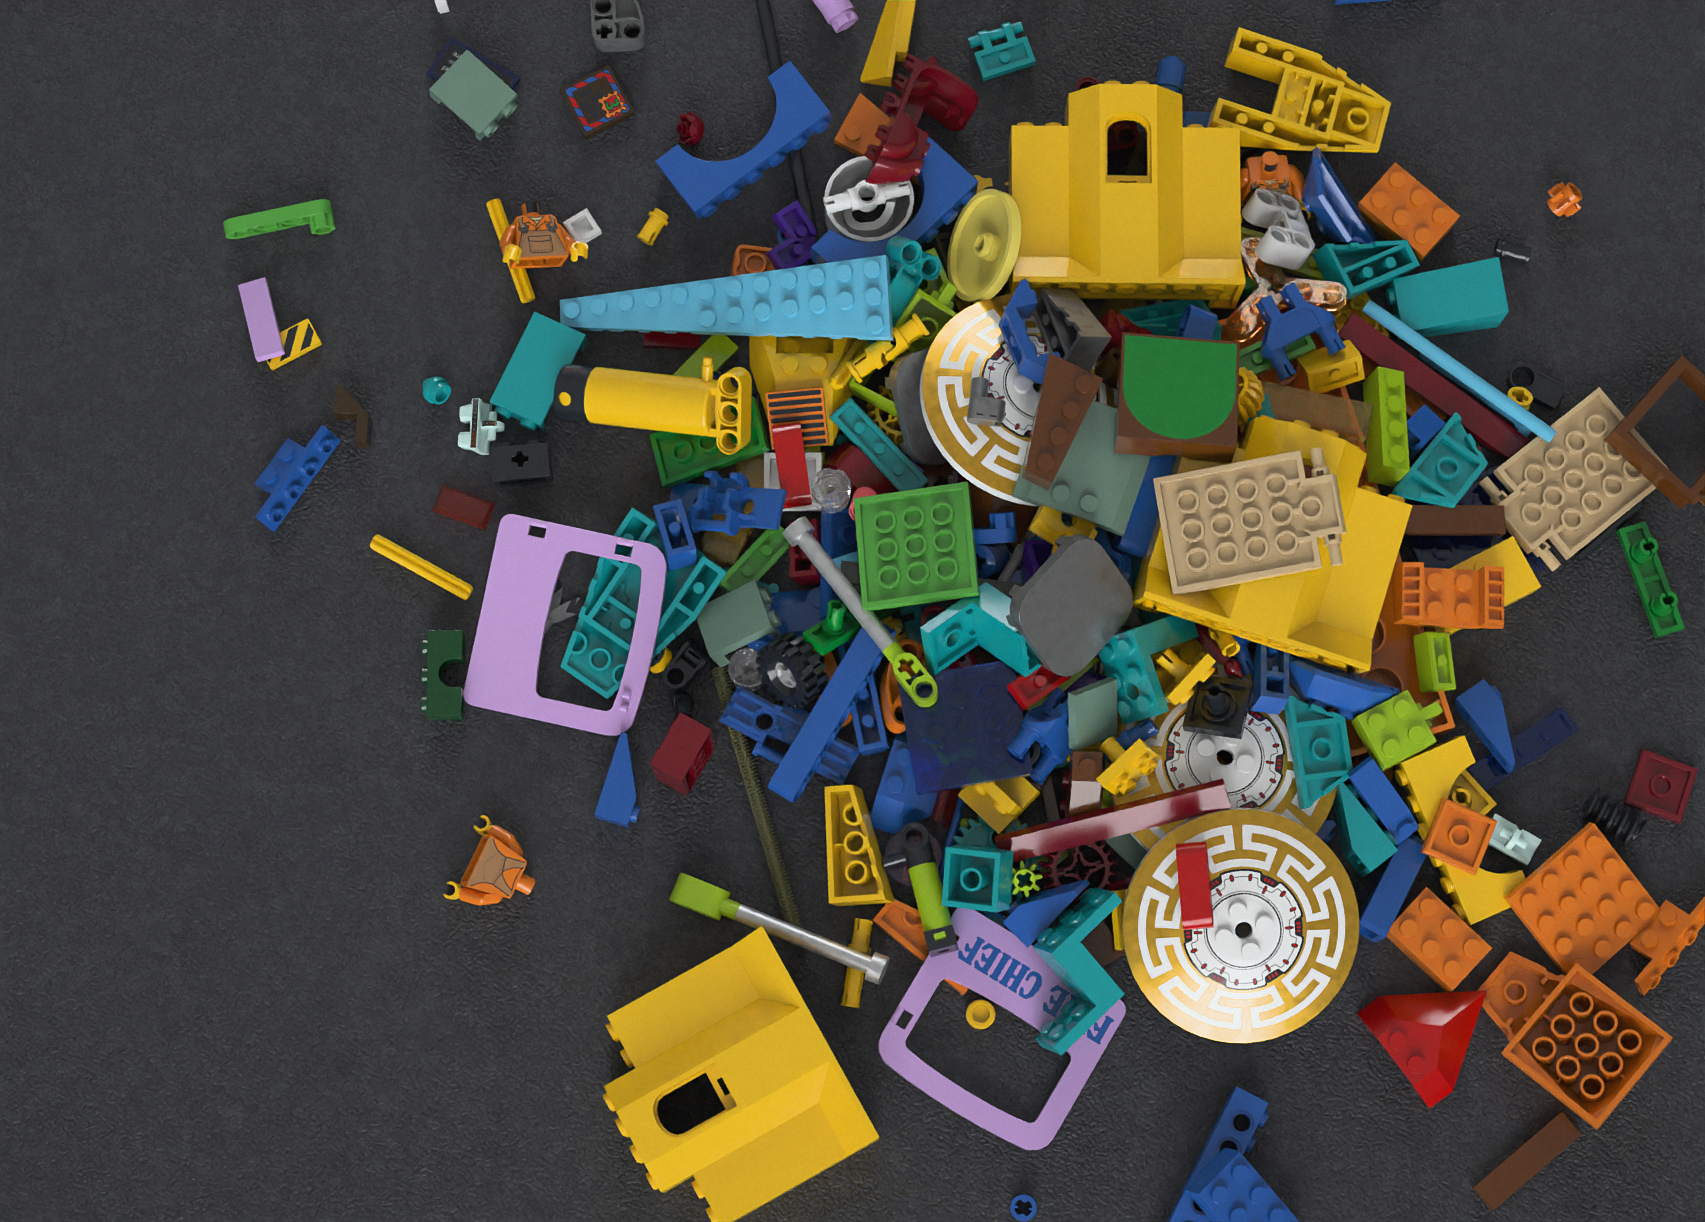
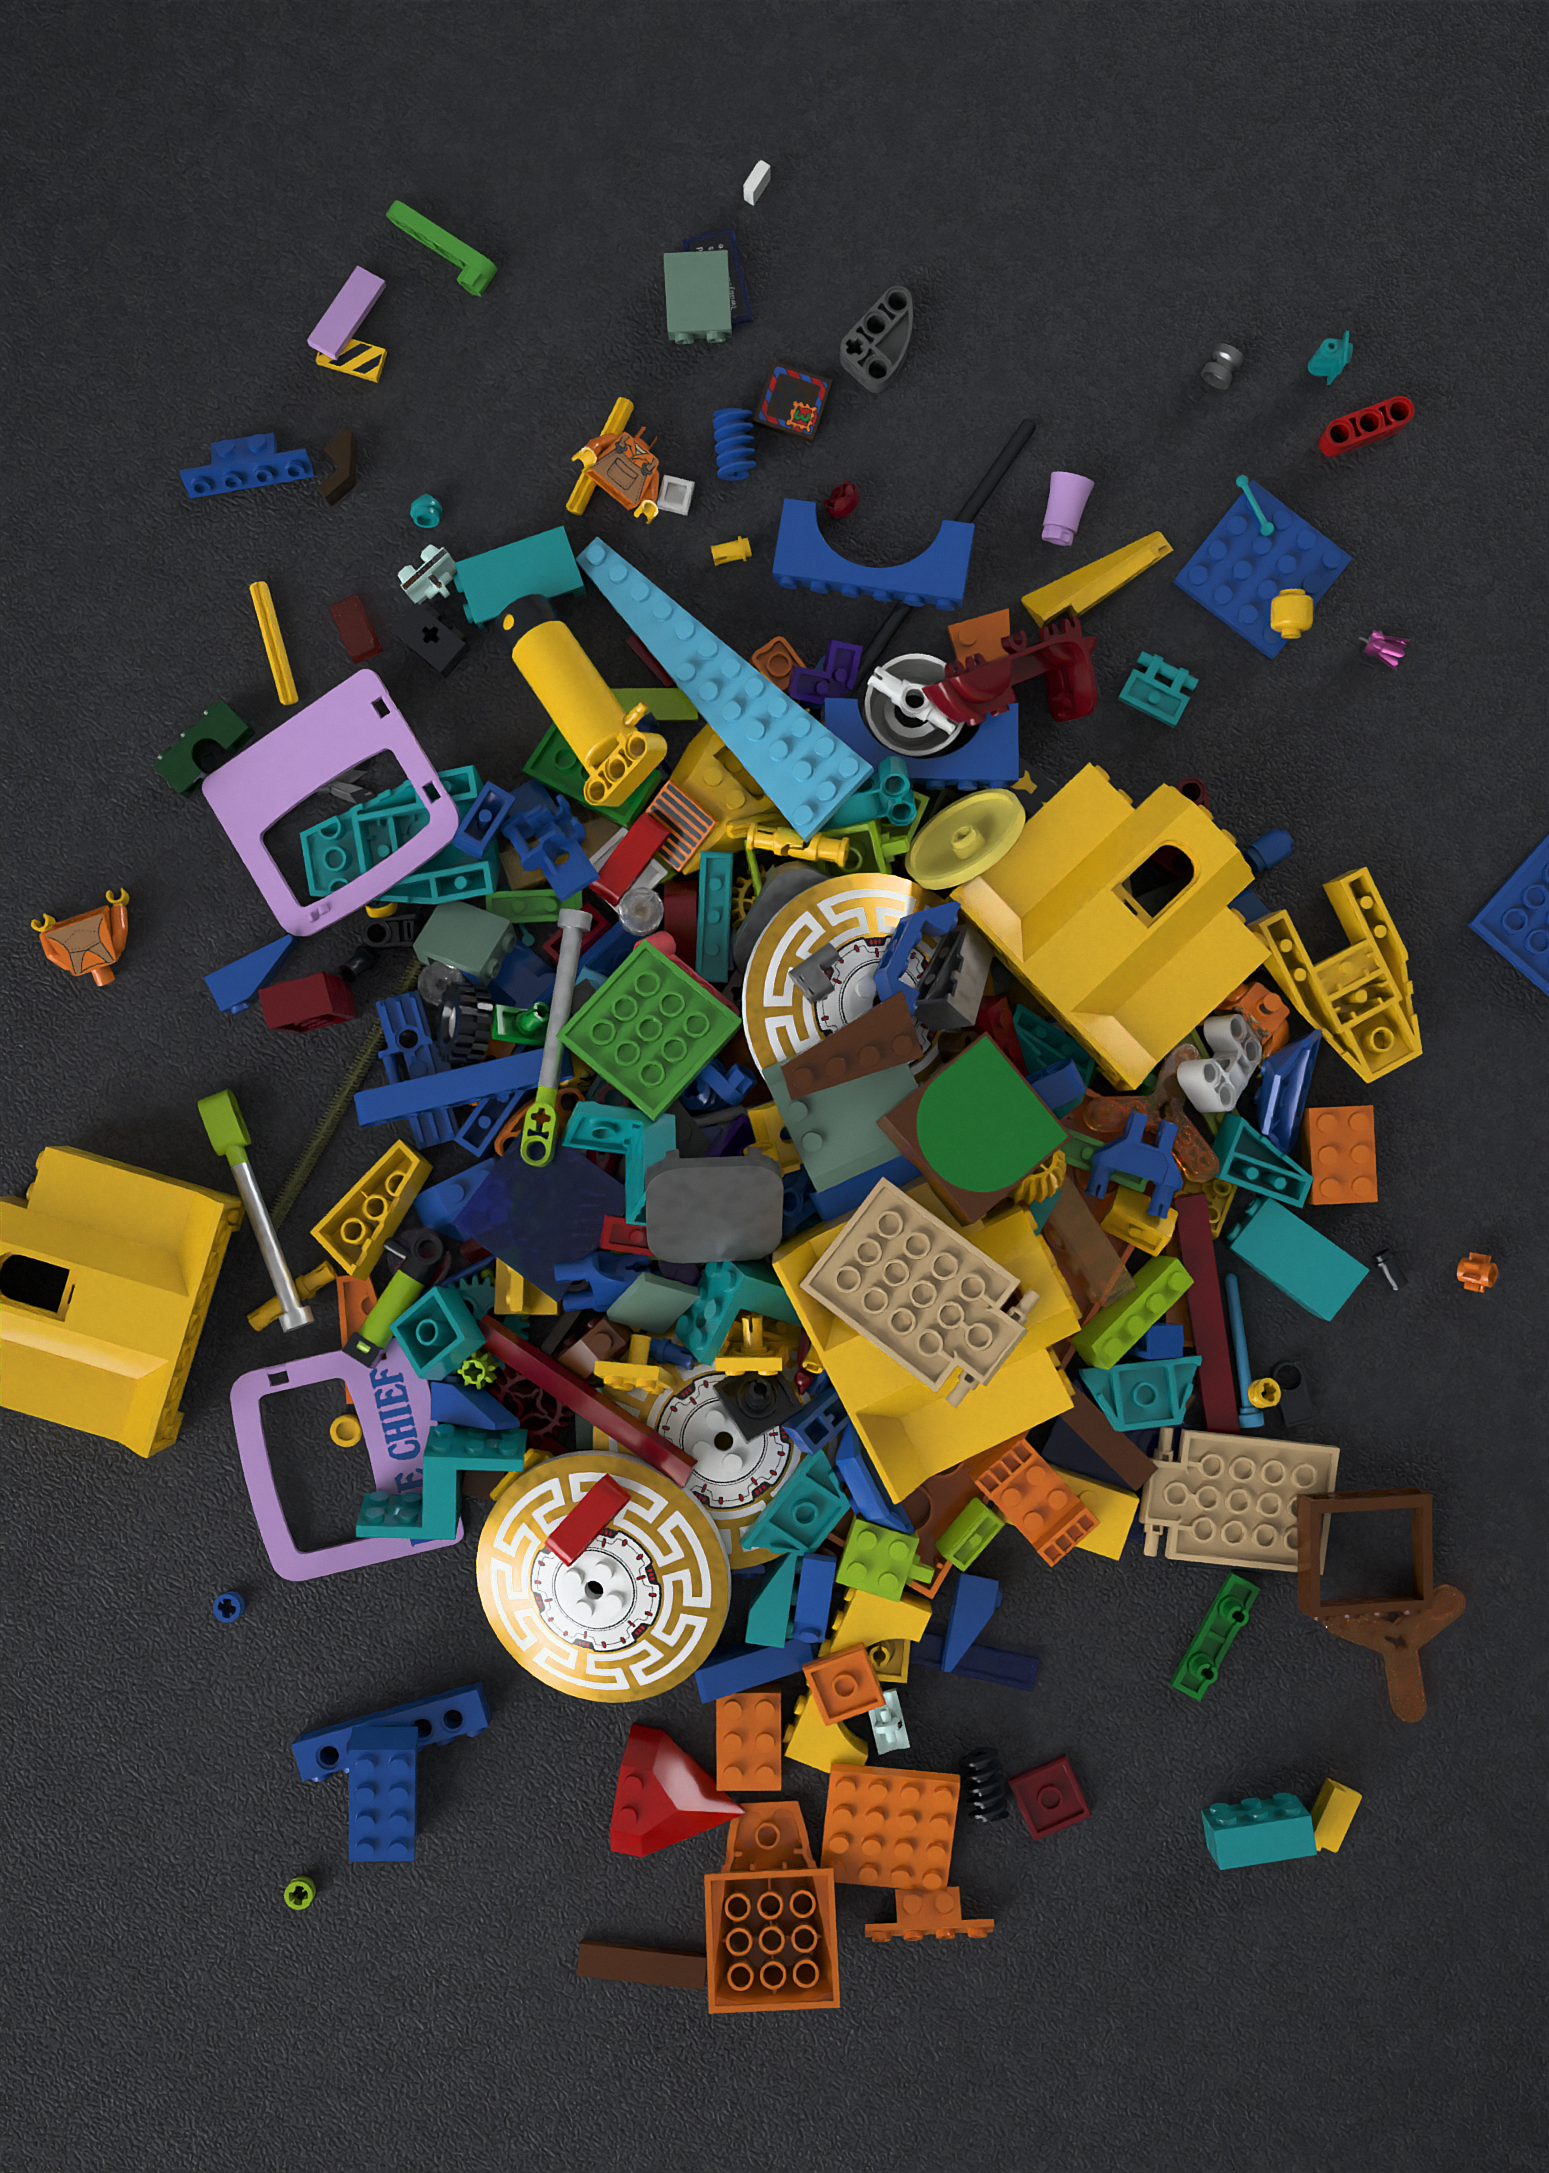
camera: 50 degrees right, 10 degrees up
(587, 161) = (732, 443): none -> blue piece
(1459, 371) = (1240, 1324): medium azure piece -> none

